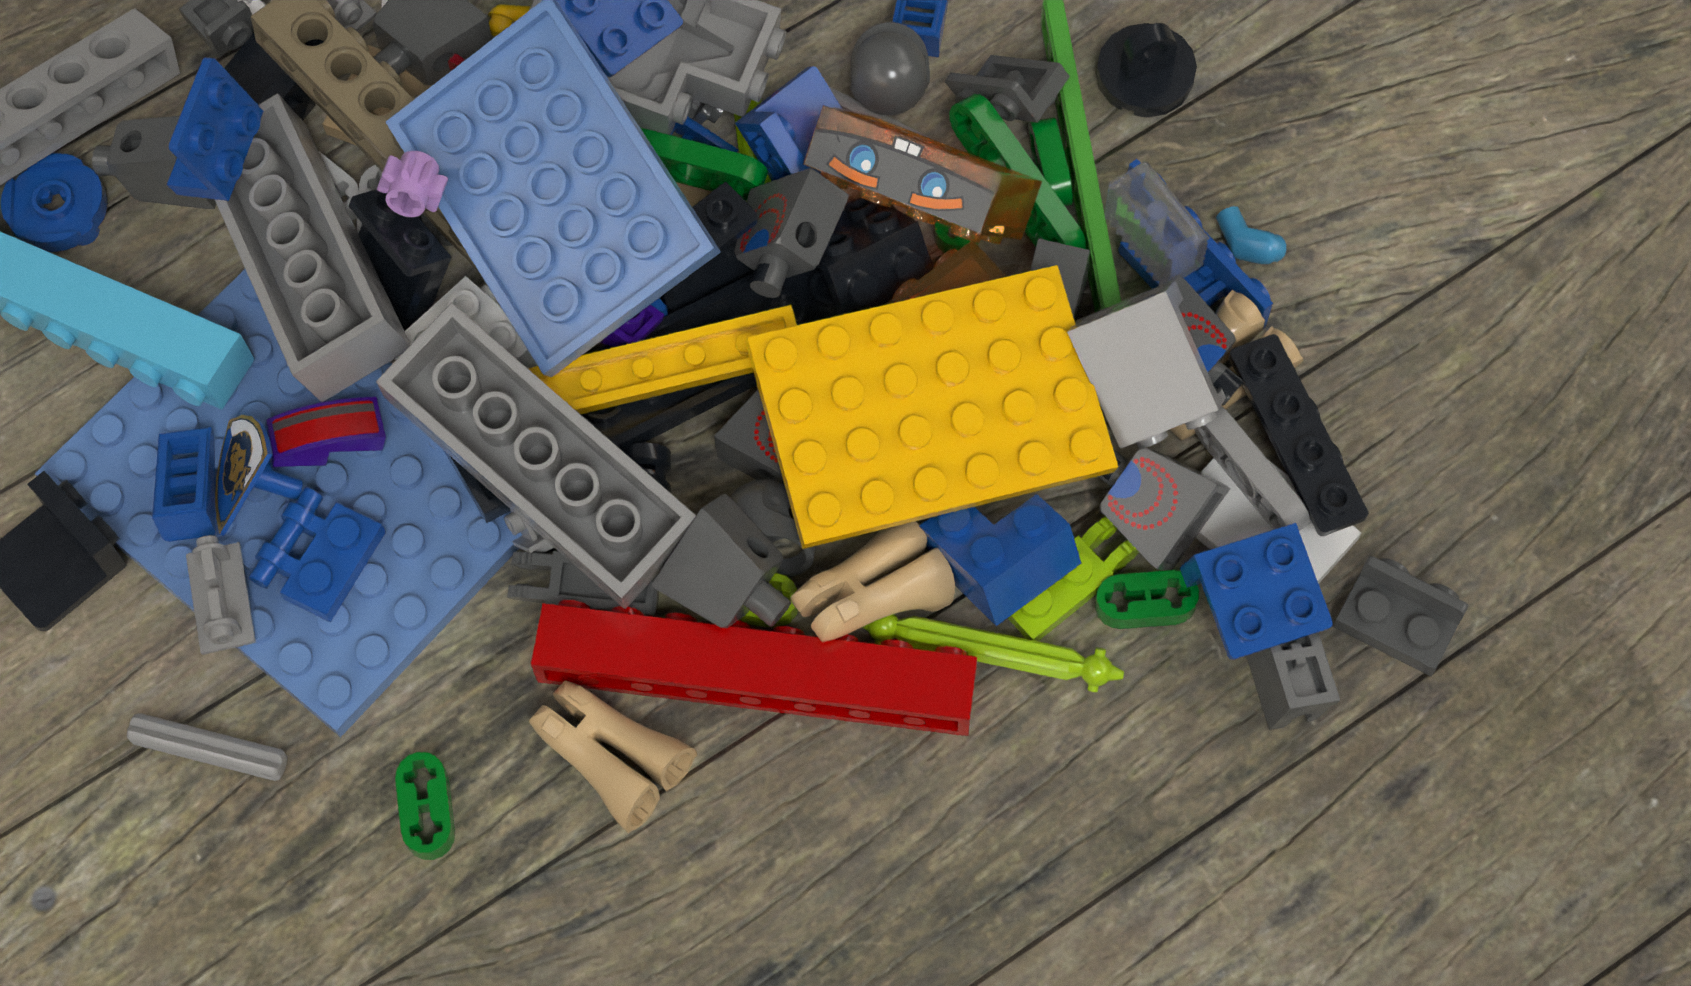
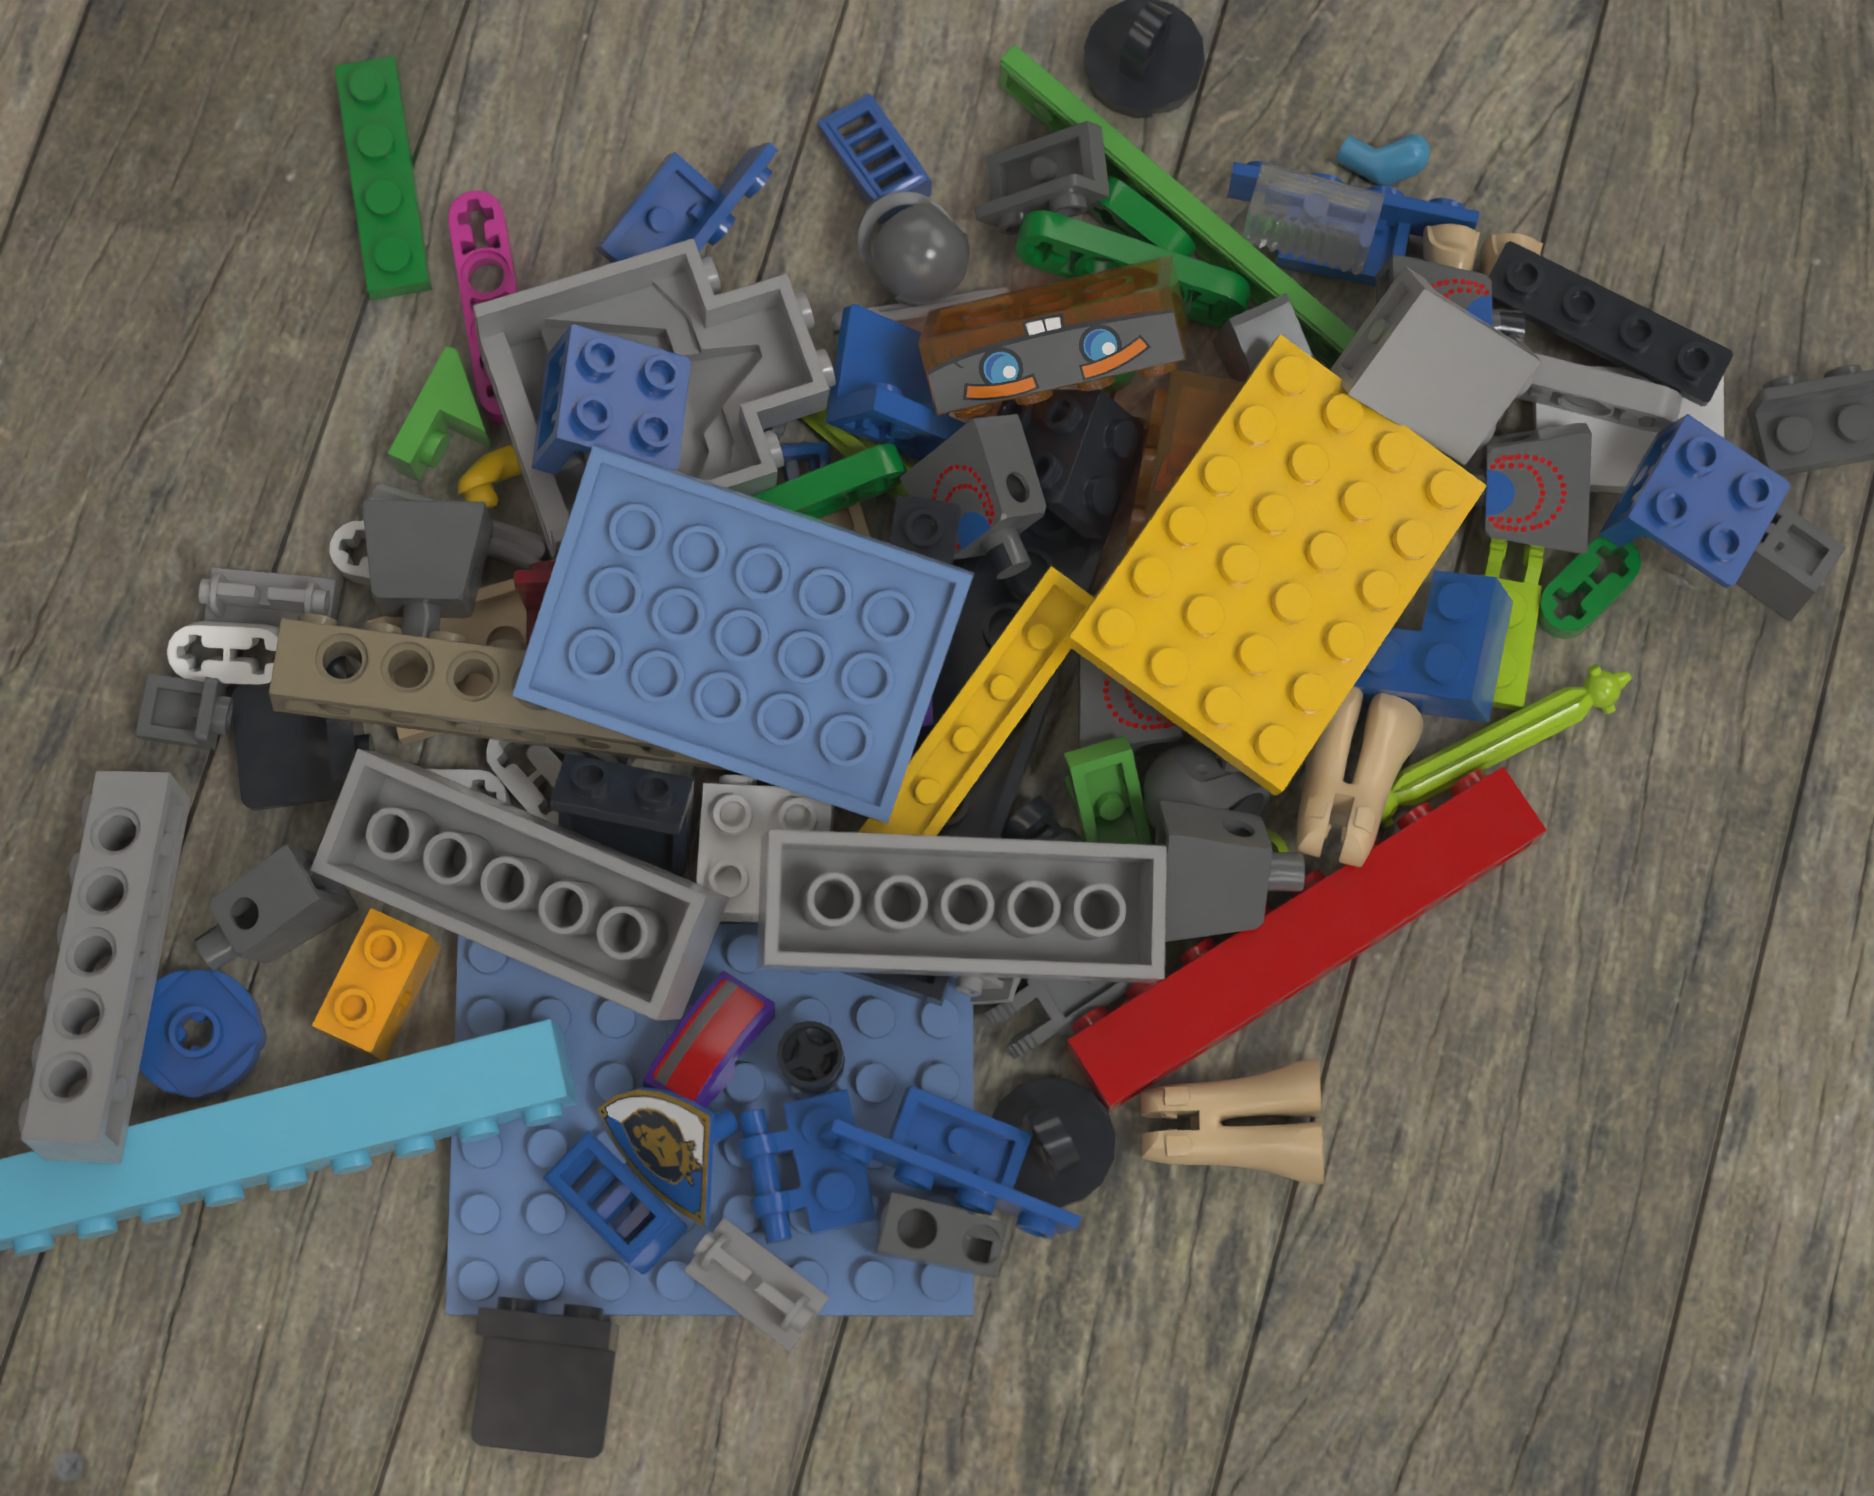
camera: 40 degrees left, 10 degrees up
(175, 251) = (376, 985): none -> light orange brick
(207, 746) = (863, 1430): light grey axle -> none
(212, 135) = (346, 848): blue bracket -> none
(350, 654) = (939, 1236): none -> dark grey leg
(370, 477) = (806, 1047): none -> black wheel
(411, 612) = (955, 1150): none -> blue bracket
(412, 183) = (609, 739): lavender gear -> none
(412, 806) = (1128, 1302): green beam -> none
(482, 668) = (1069, 1139): none -> black tile
(709, 468) = (1107, 793): none -> bright green slope

